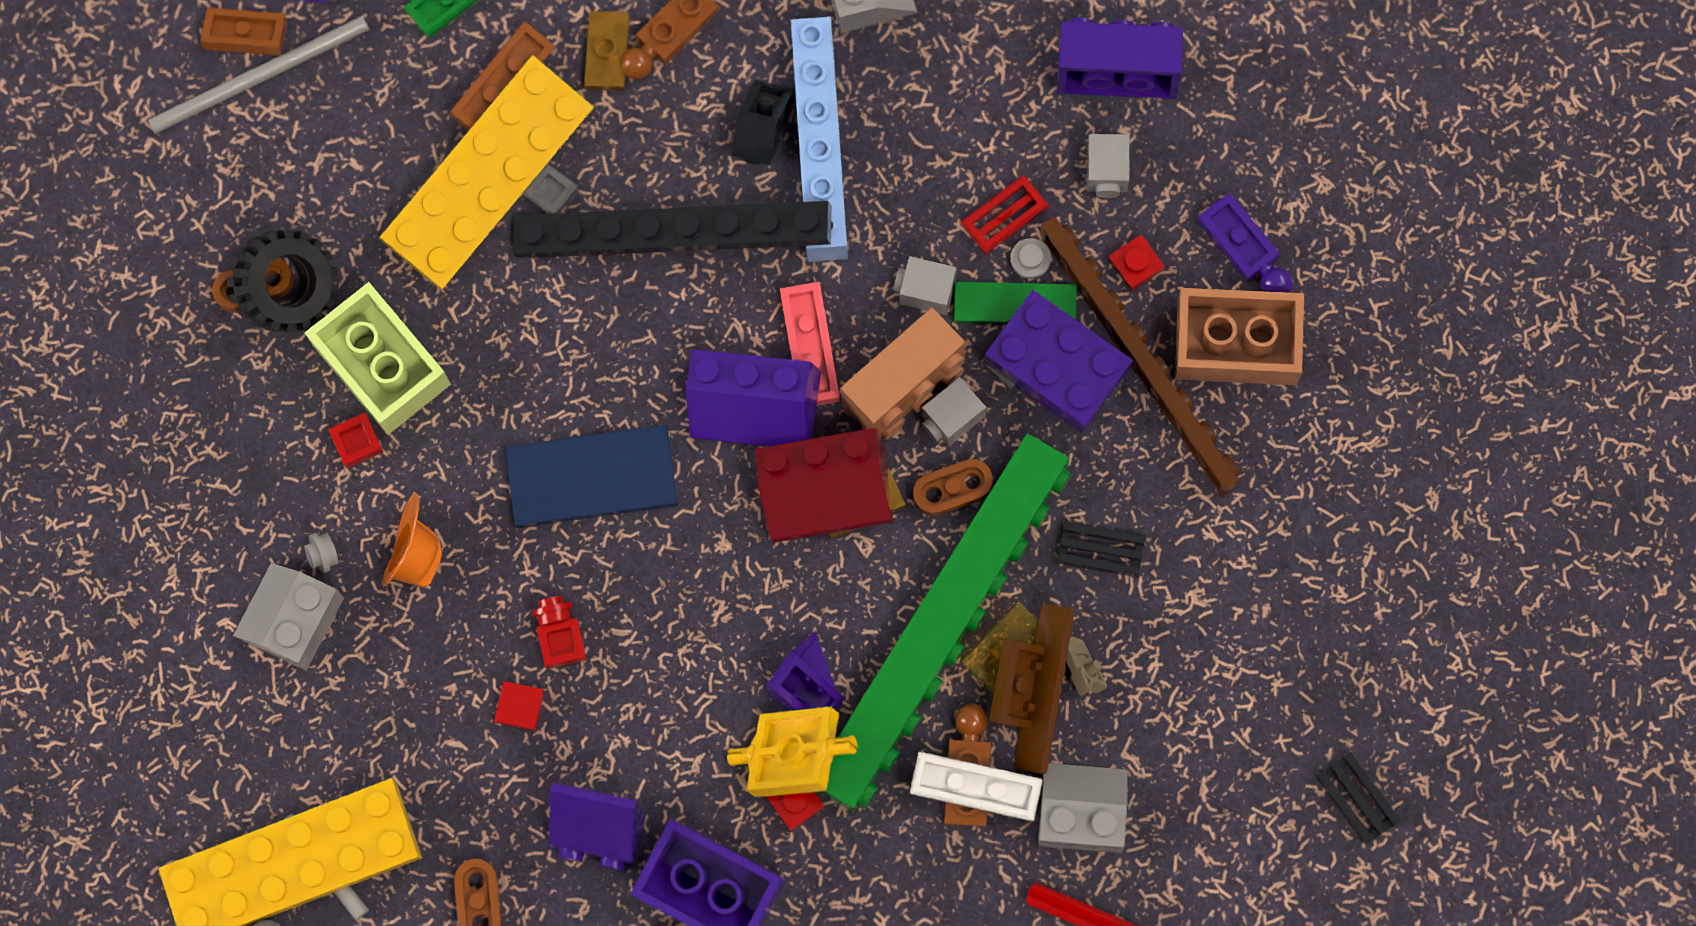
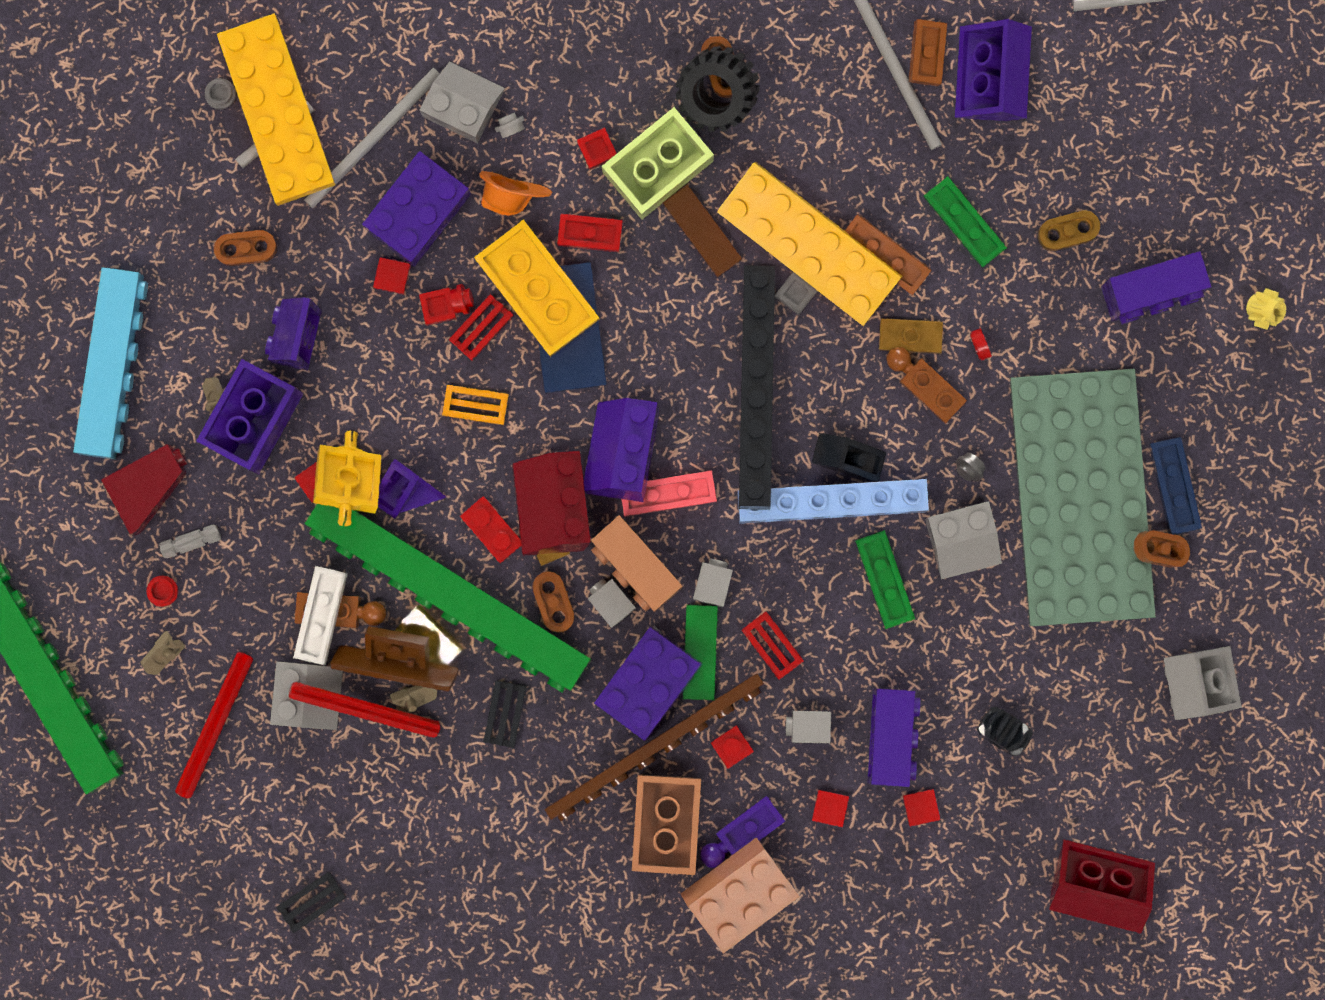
camera: 90 degrees right, 10 degrees up
(324, 726) = (376, 134): none -> light grey piece
(430, 670) = (416, 208): none -> dark purple brick
(467, 448) = (590, 233): none -> red plate
(468, 307) = (702, 231): none -> reddish brown tile
(539, 510) = (536, 288): none -> yellow plate
(564, 564) = (492, 333): none -> red tile
(688, 628) = (475, 417): none -> light orange tile
(858, 570) = (491, 529): none -> red plate
(918, 79) = (885, 579): none -> green tile
(1030, 258) = (736, 665): light grey plate -> none
(1100, 725) = (364, 709): none -> red axle
(1206, 32) = (921, 807): none -> red tile
(1210, 142) = (830, 808): none -> red tile
(1326, 243) = (739, 895): none -> nougat brick

